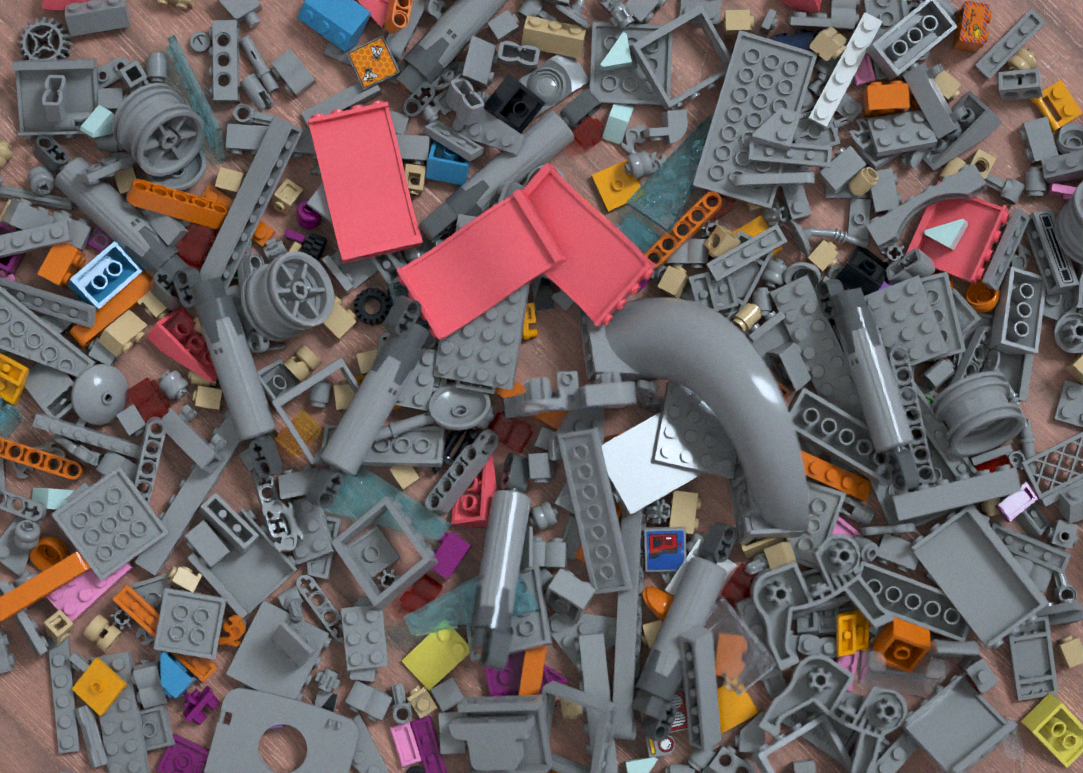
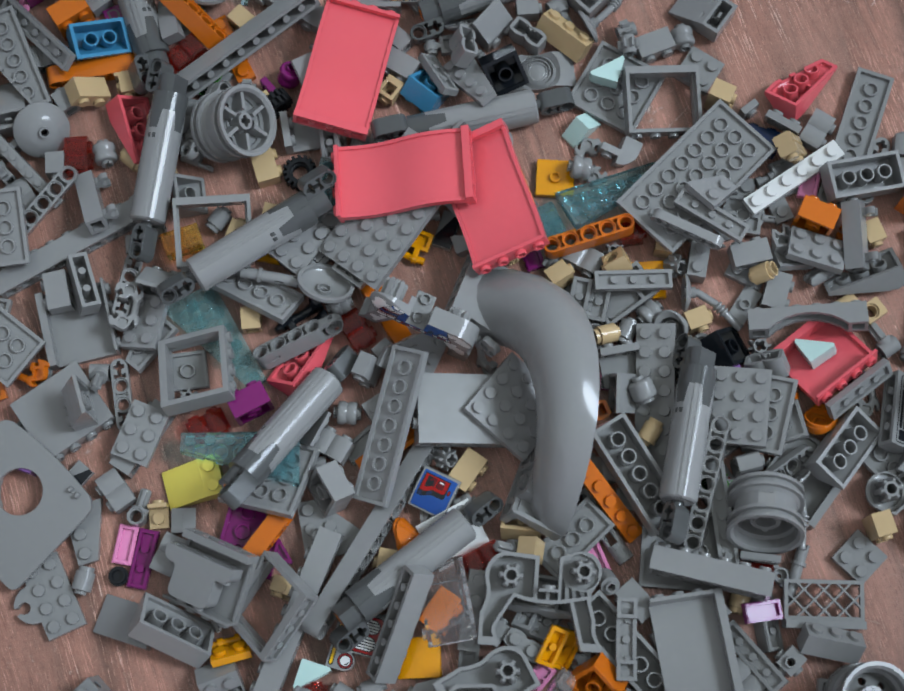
camera: 25 degrees right, 10 degrees down
(183, 579) = (21, 309): tan brick -> none
(208, 398) = (125, 177): tan brick -> none
(286, 196) = (279, 53): tan bracket -> none
(302, 363) = (218, 186): tan wheel -> none
(327, 680) = (91, 455): light grey gear -> none
(588, 132) = (552, 124): clear red brick -> none
(808, 355) = (642, 389): none -> light grey head
(835, 390) = (651, 431): none -> tan brick
(888, 529) = (648, 579): light grey helmet -> none
(909, 594) = (626, 639): none -> light grey slope

